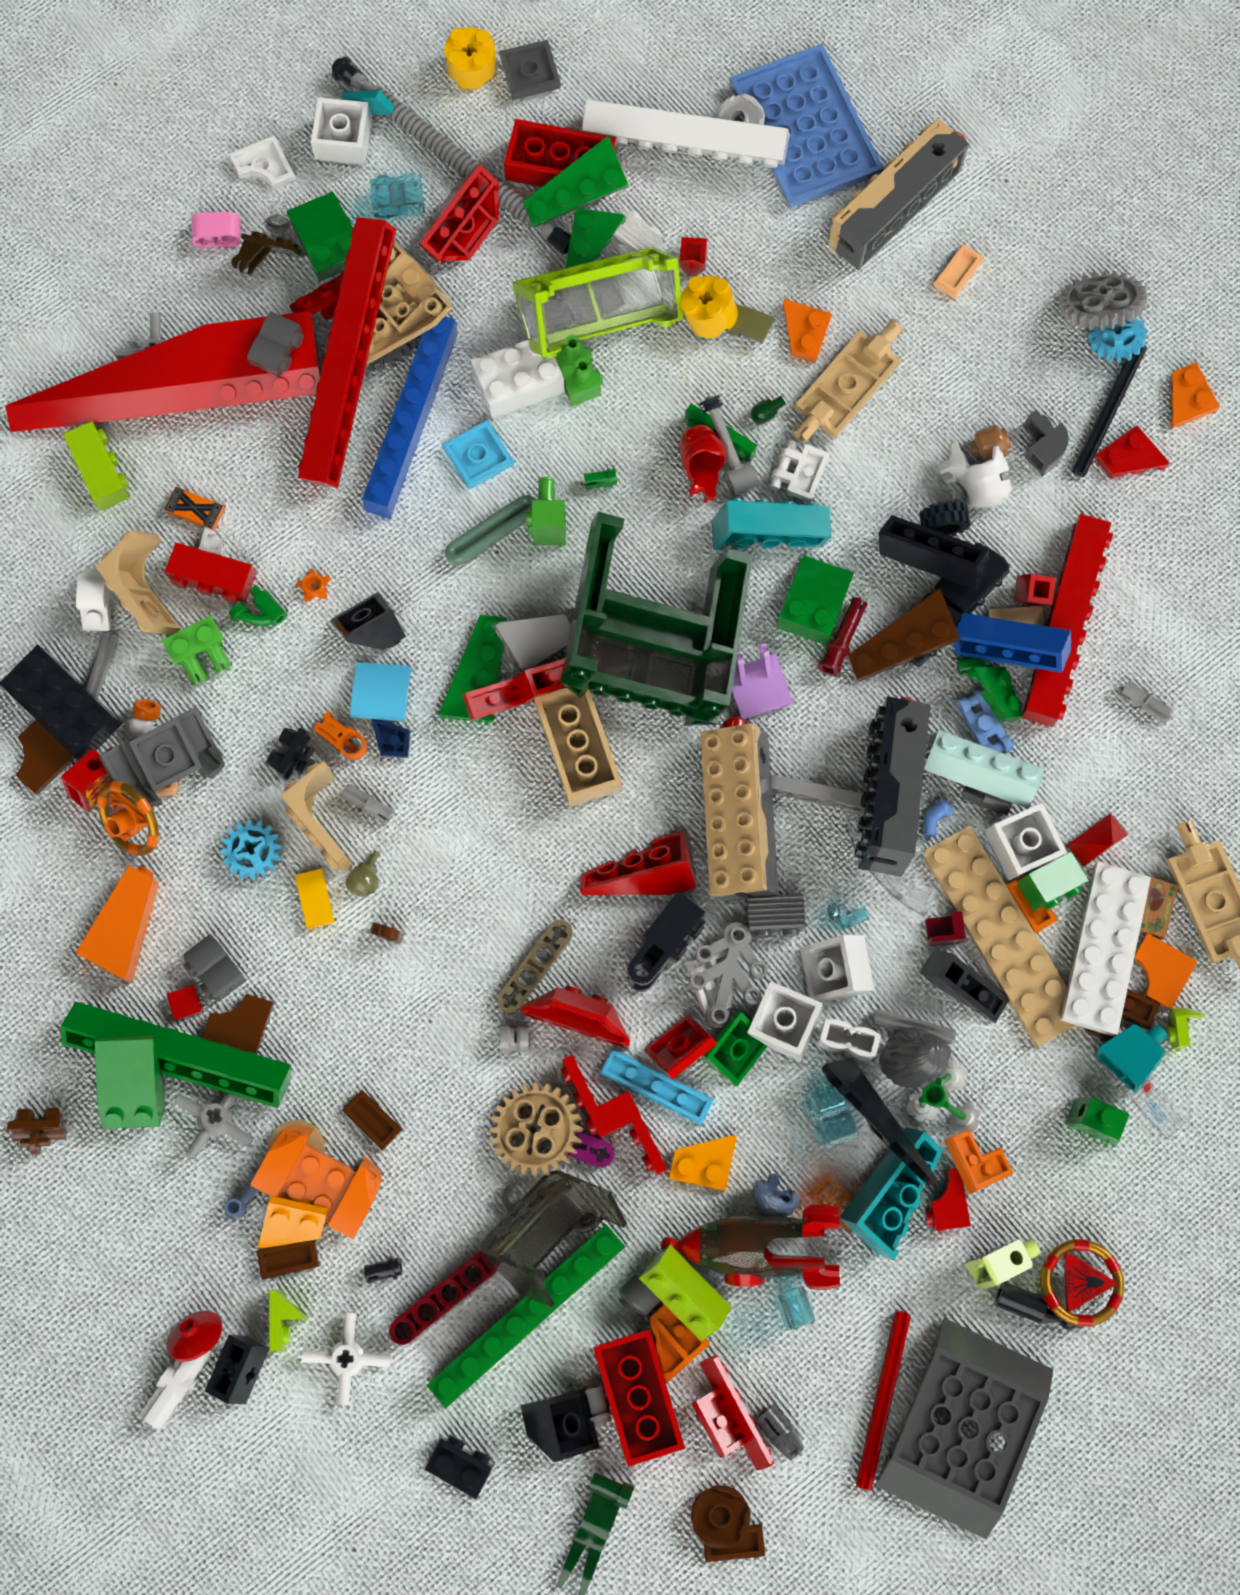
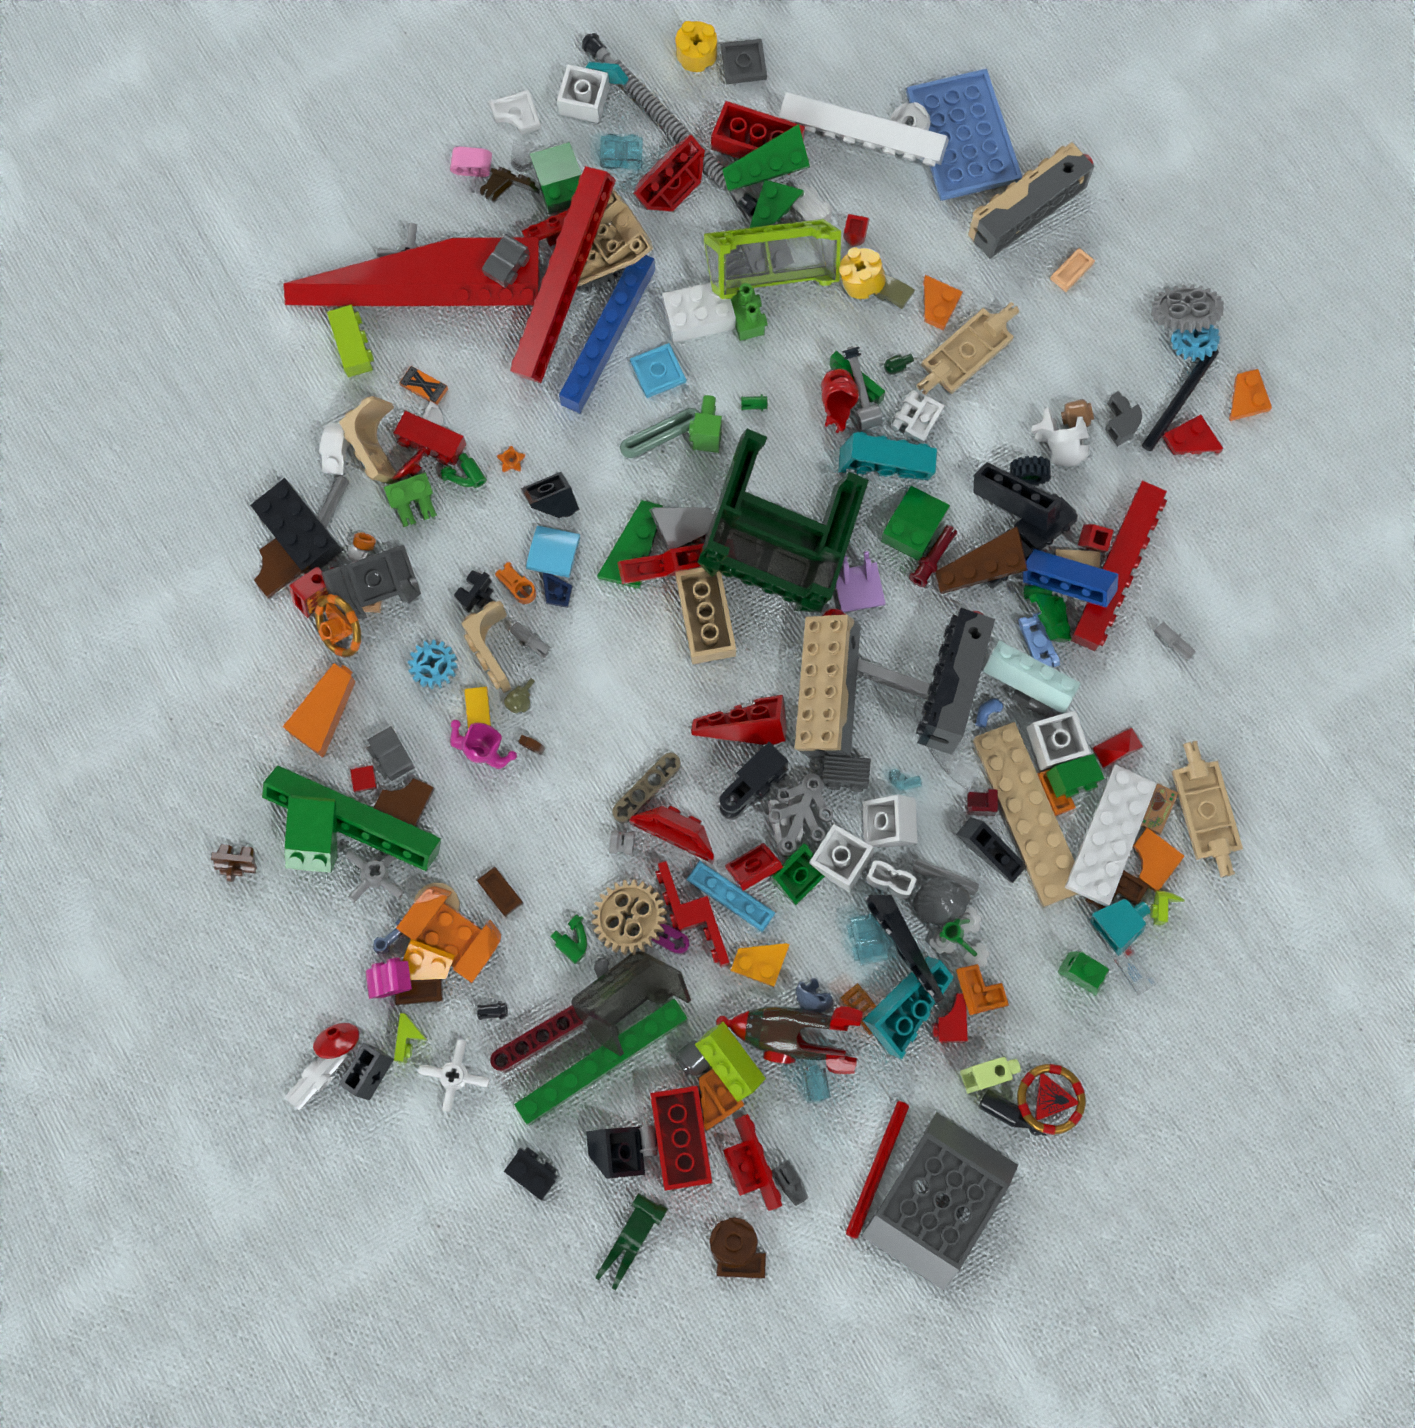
camera: 10 degrees right, 0 degrees up
(192, 610) = (411, 466): none -> red dish
(248, 1249) = (388, 978): none -> dark pink brick
(324, 941) = (480, 744): none -> dark pink piece
(470, 1180) = (567, 946): none -> green plant

